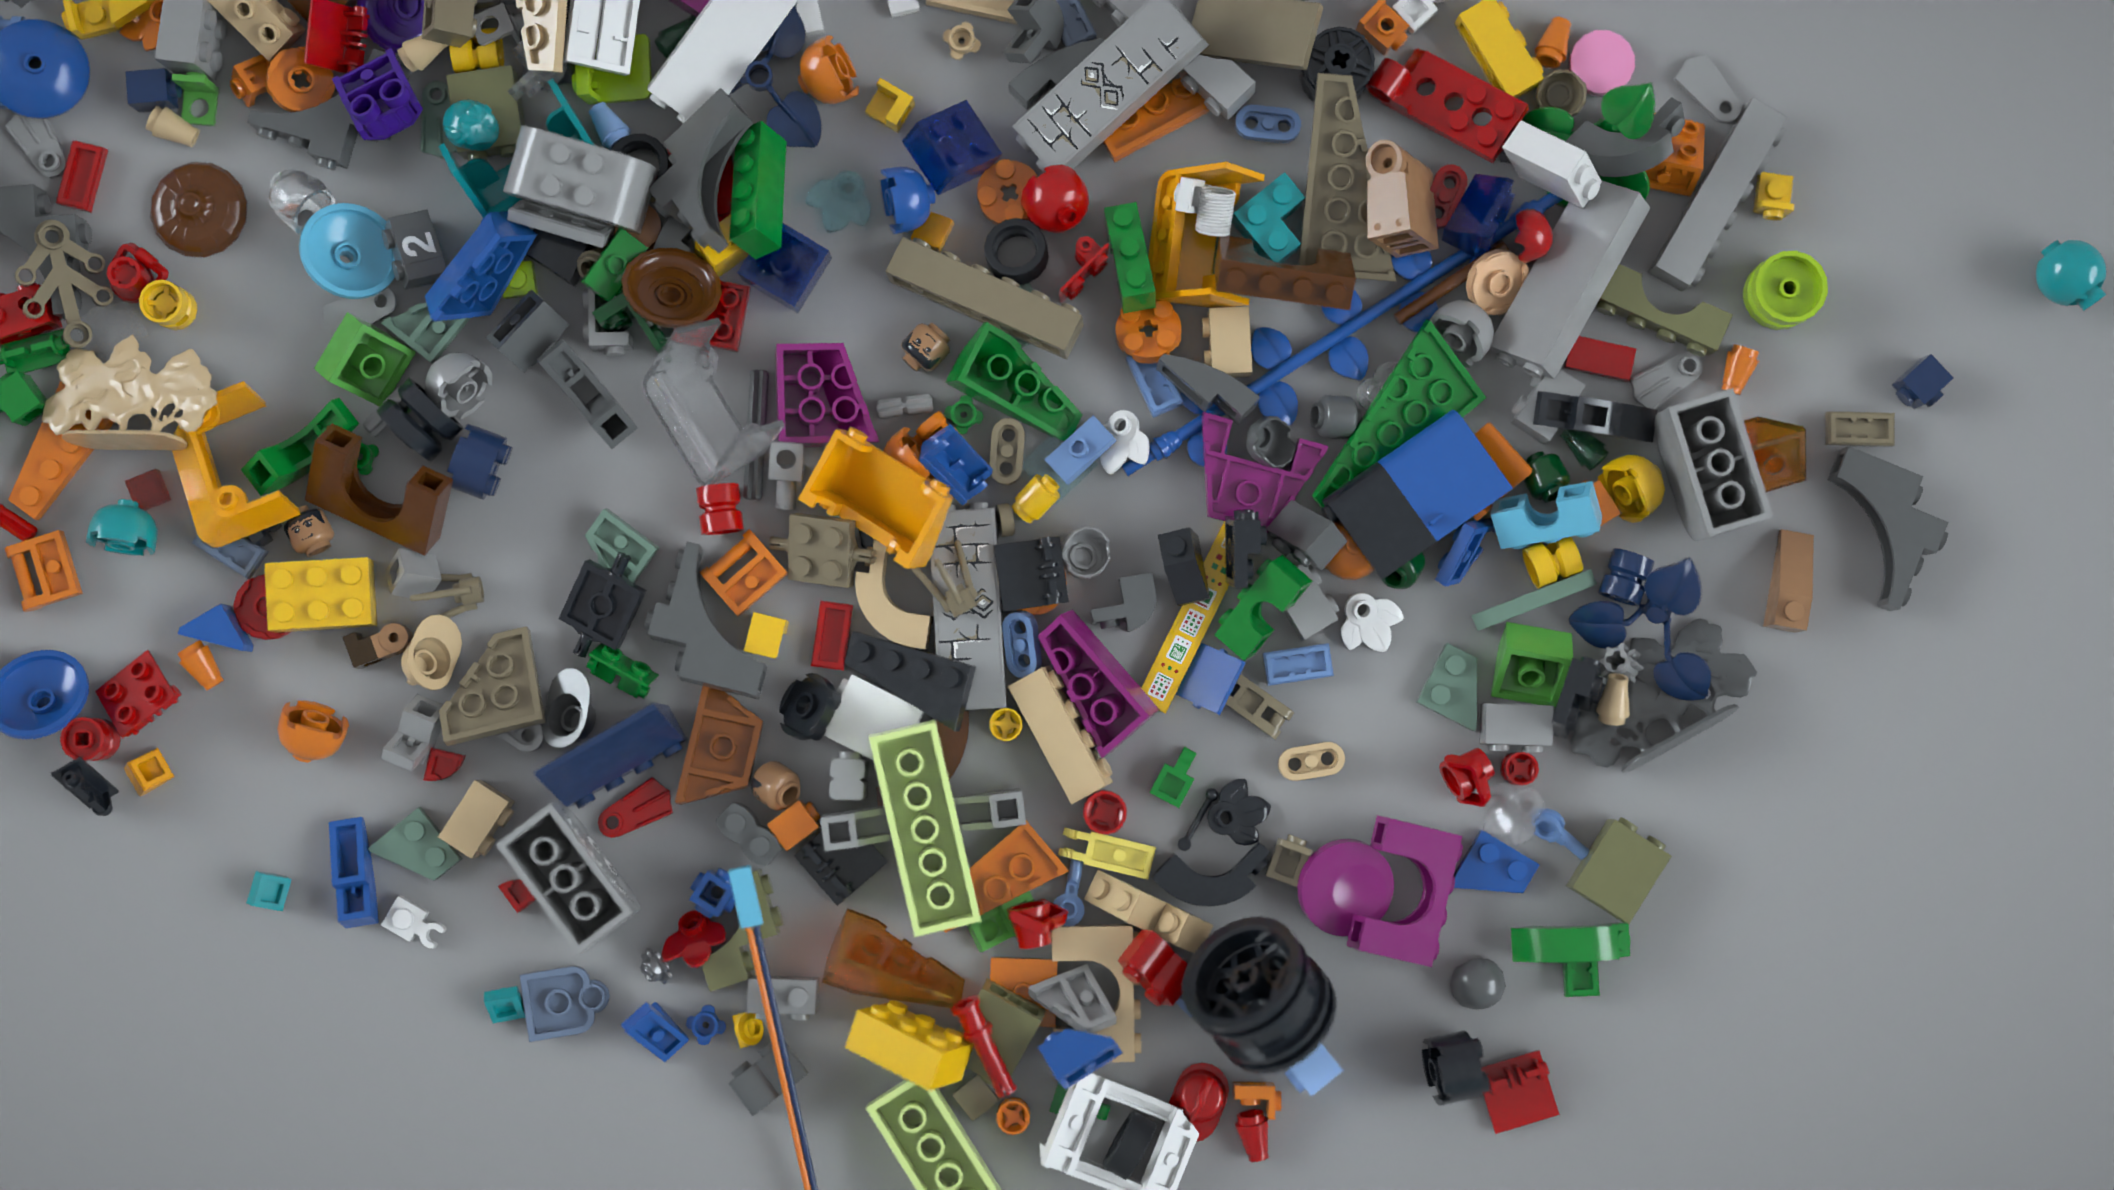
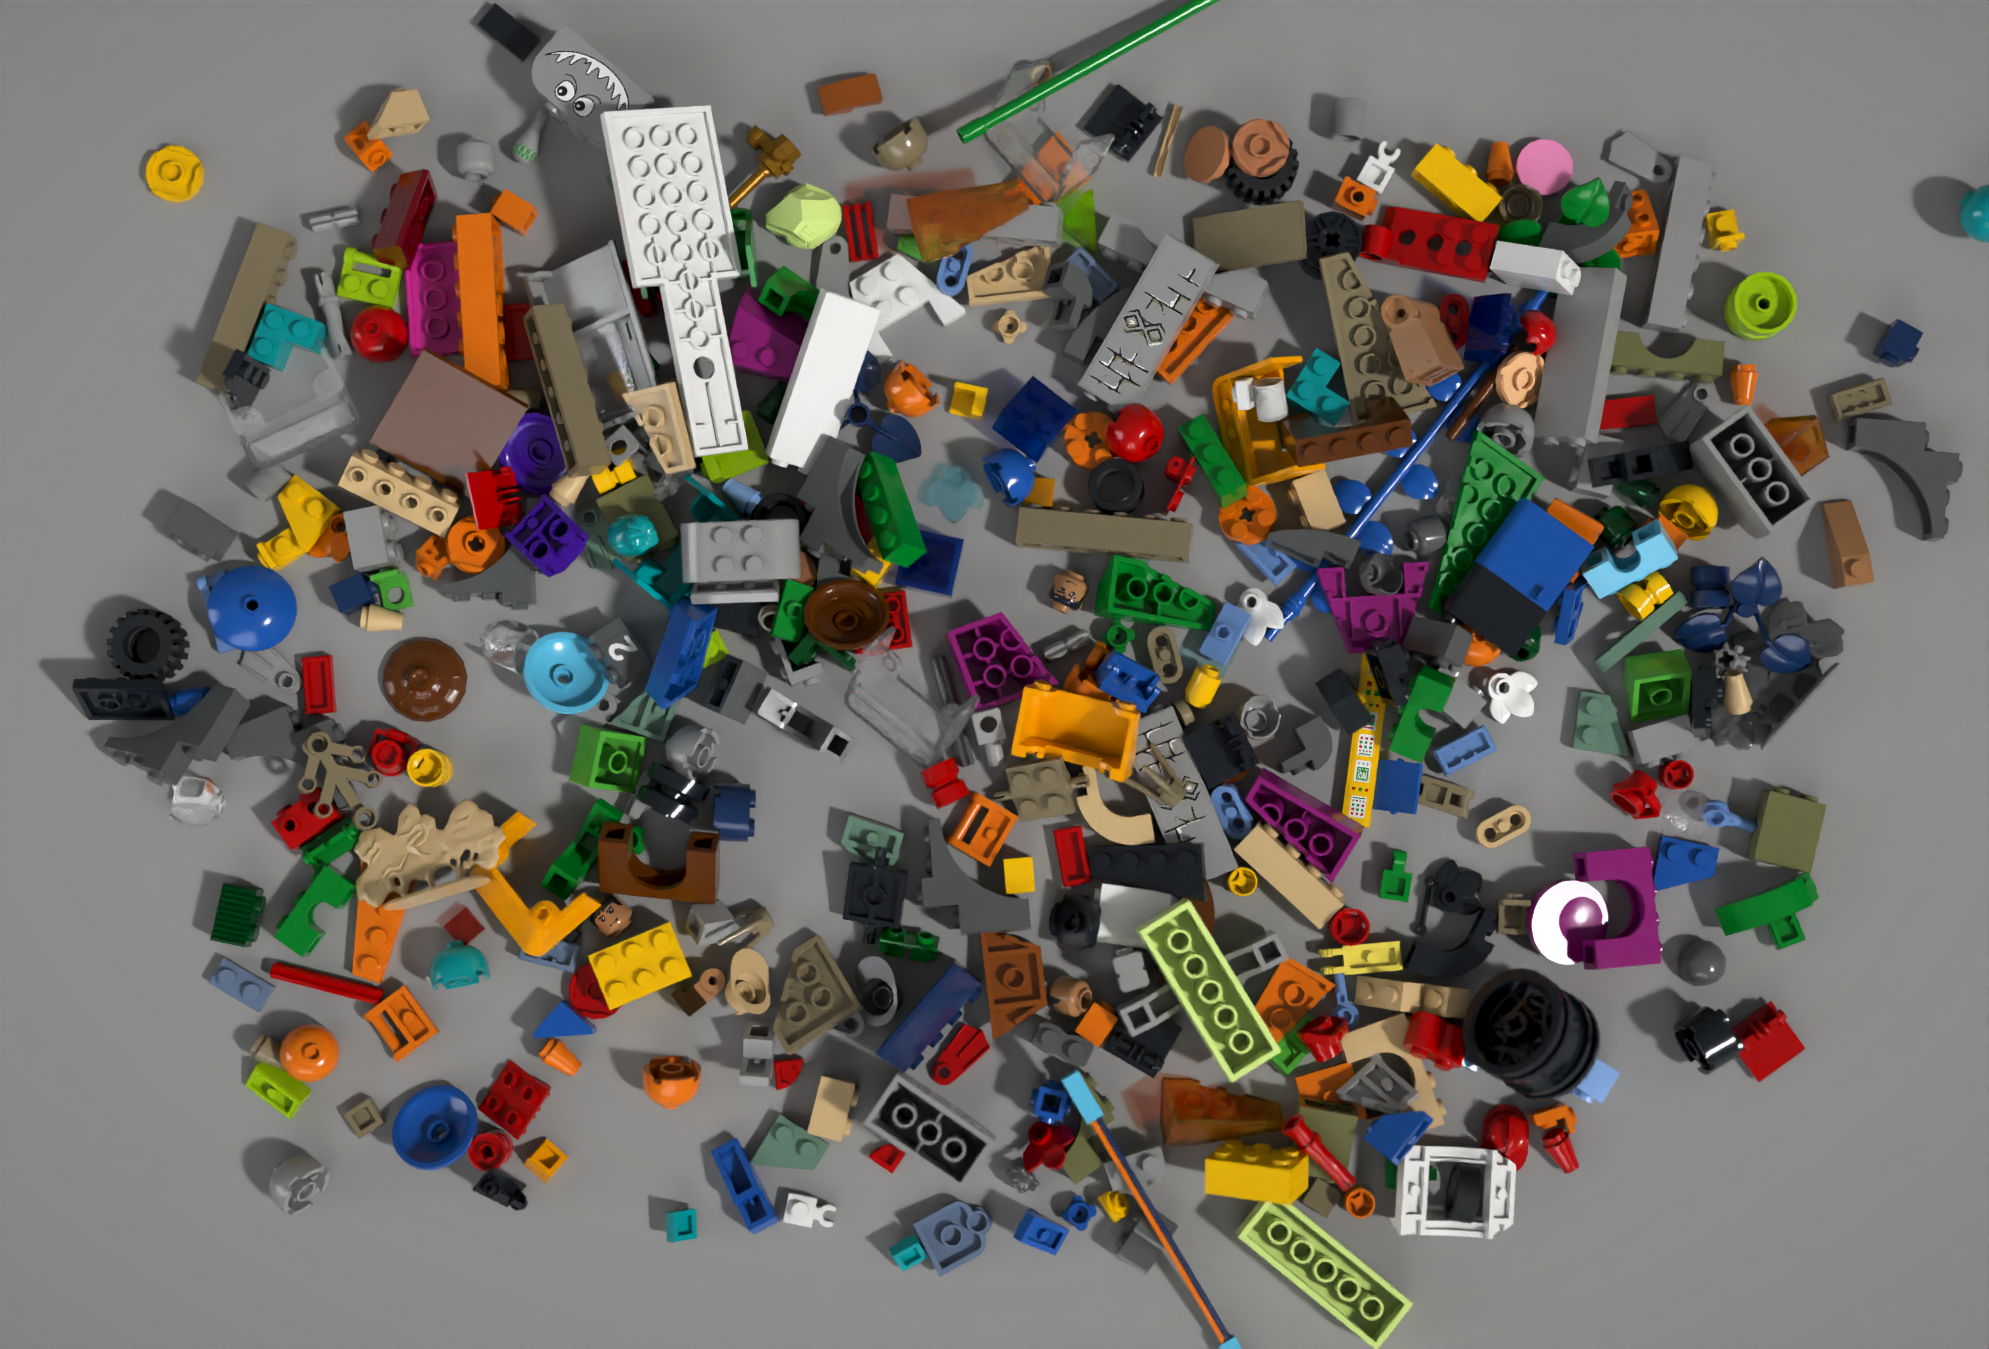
camera: 10 degrees left, 0 degrees up
(1267, 123) = (1285, 311): medium blue plate -> none

